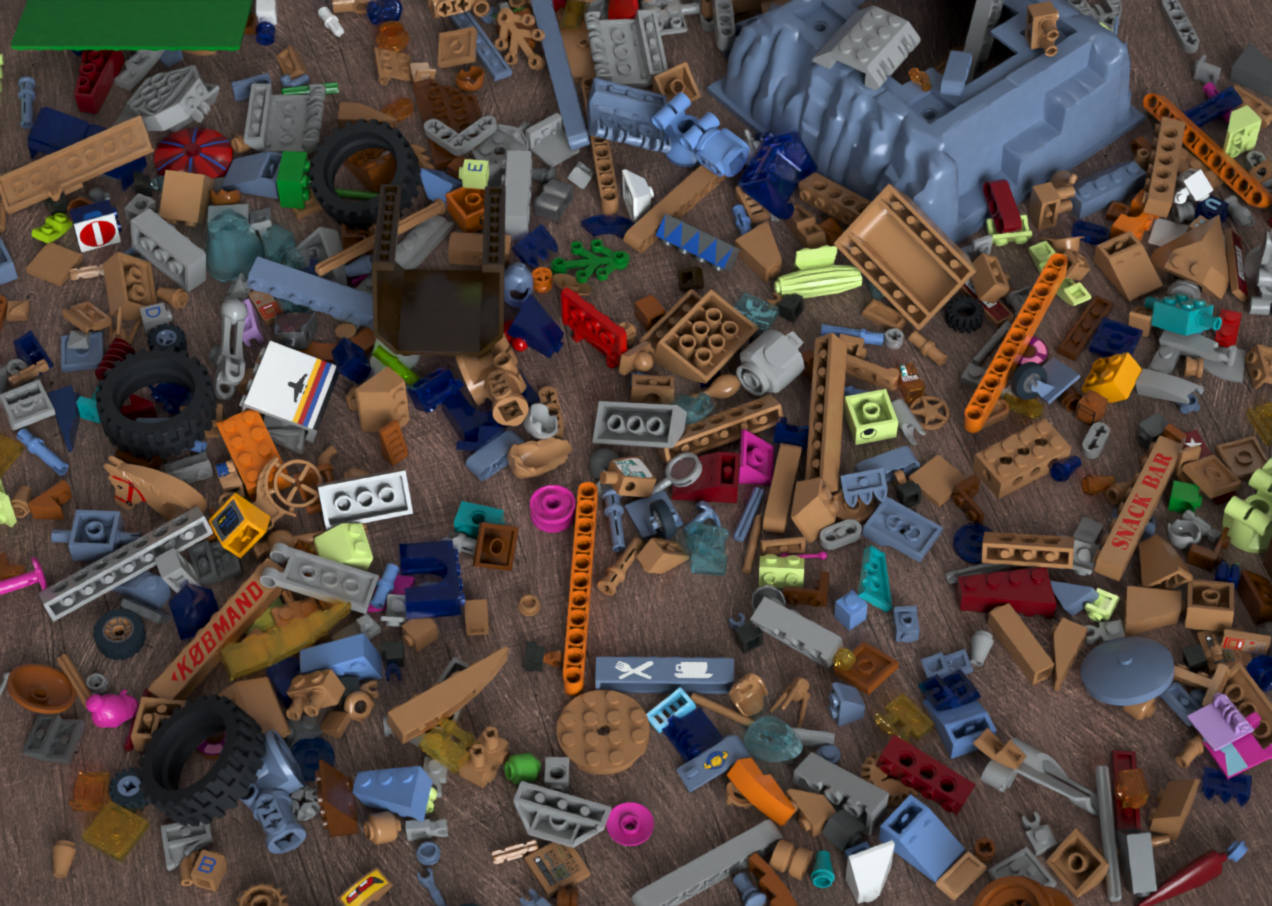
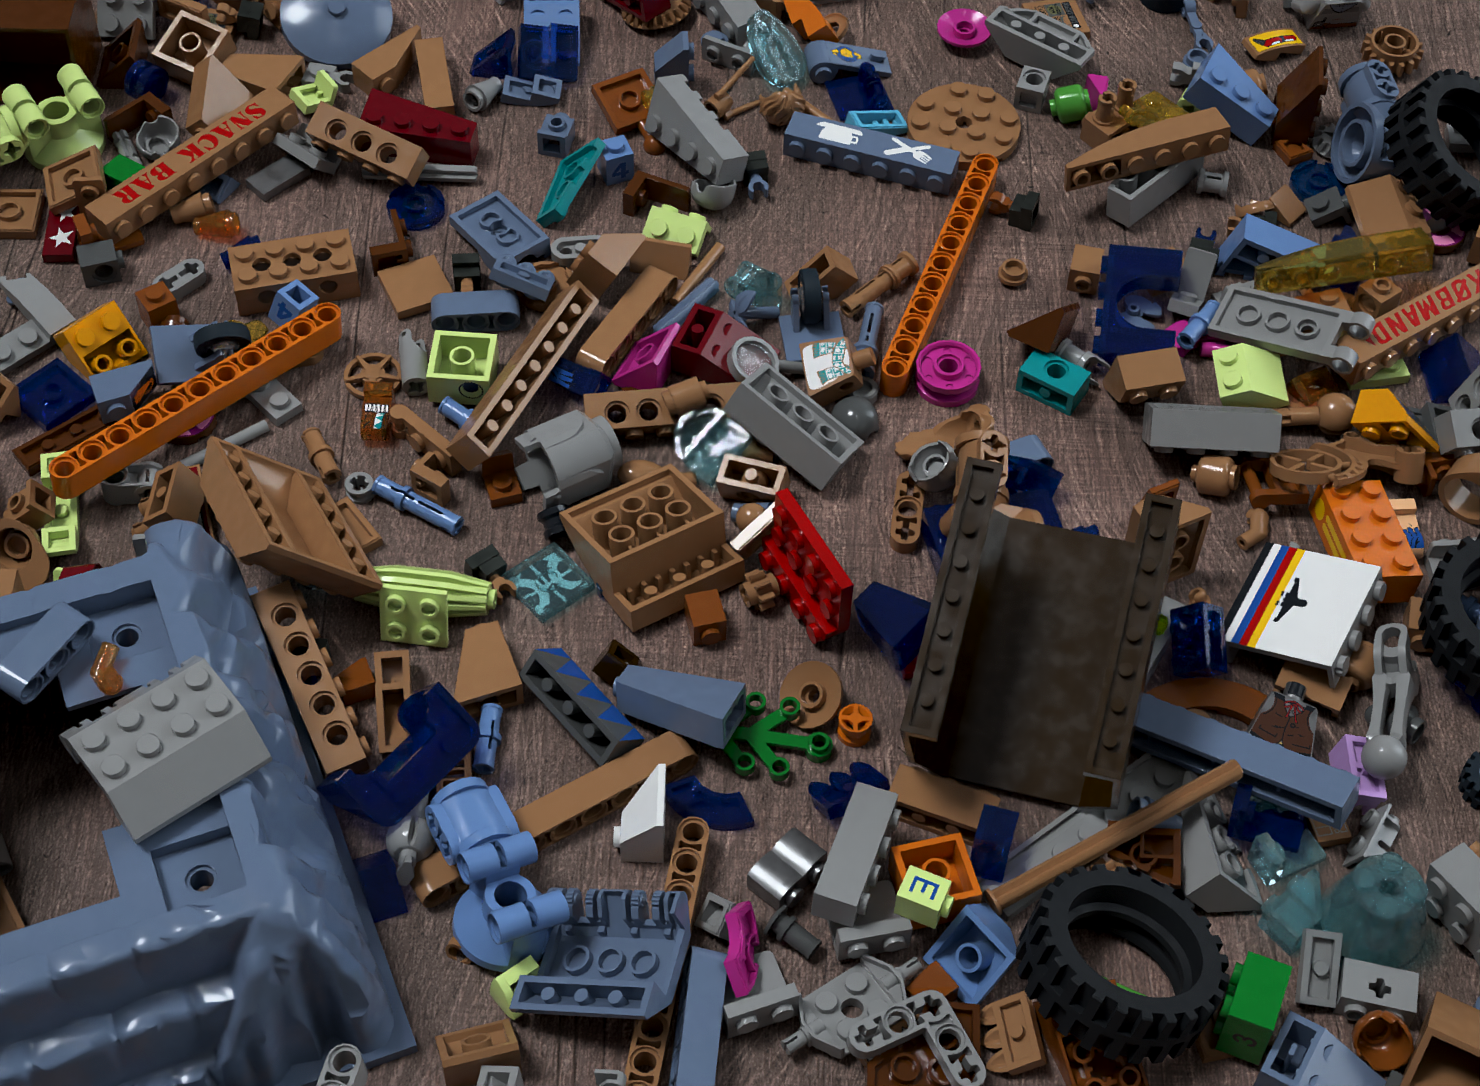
camera: 165 degrees left, 0 degrees up
(313, 692) = (1308, 214): medium nougat brick -> none
(416, 523) = (1145, 376): none -> medium nougat slope
(446, 222) = (993, 842): none -> clear blue slope
(504, 788) = (1096, 85): none -> dark pink slope
(514, 851) = (1104, 42): axle -> none
(517, 278) = (889, 713): sand blue piece -> none
(562, 149) = (742, 939): none -> dark pink tile
(641, 251) = (682, 702): none -> sand blue slope
(707, 559) = (772, 256): clear light blue slope -> none
(713, 413) = (685, 396): none -> medium nougat brick
(908, 716) = (605, 49): clear yellow plate -> none
(988, 680) = (496, 58): none -> clear blue slope
(1002, 425) = (291, 302): none -> medium blue brick
(1072, 340) = (123, 389): none -> sand blue slope
(1073, 596) = (340, 96): sand blue slope -> none

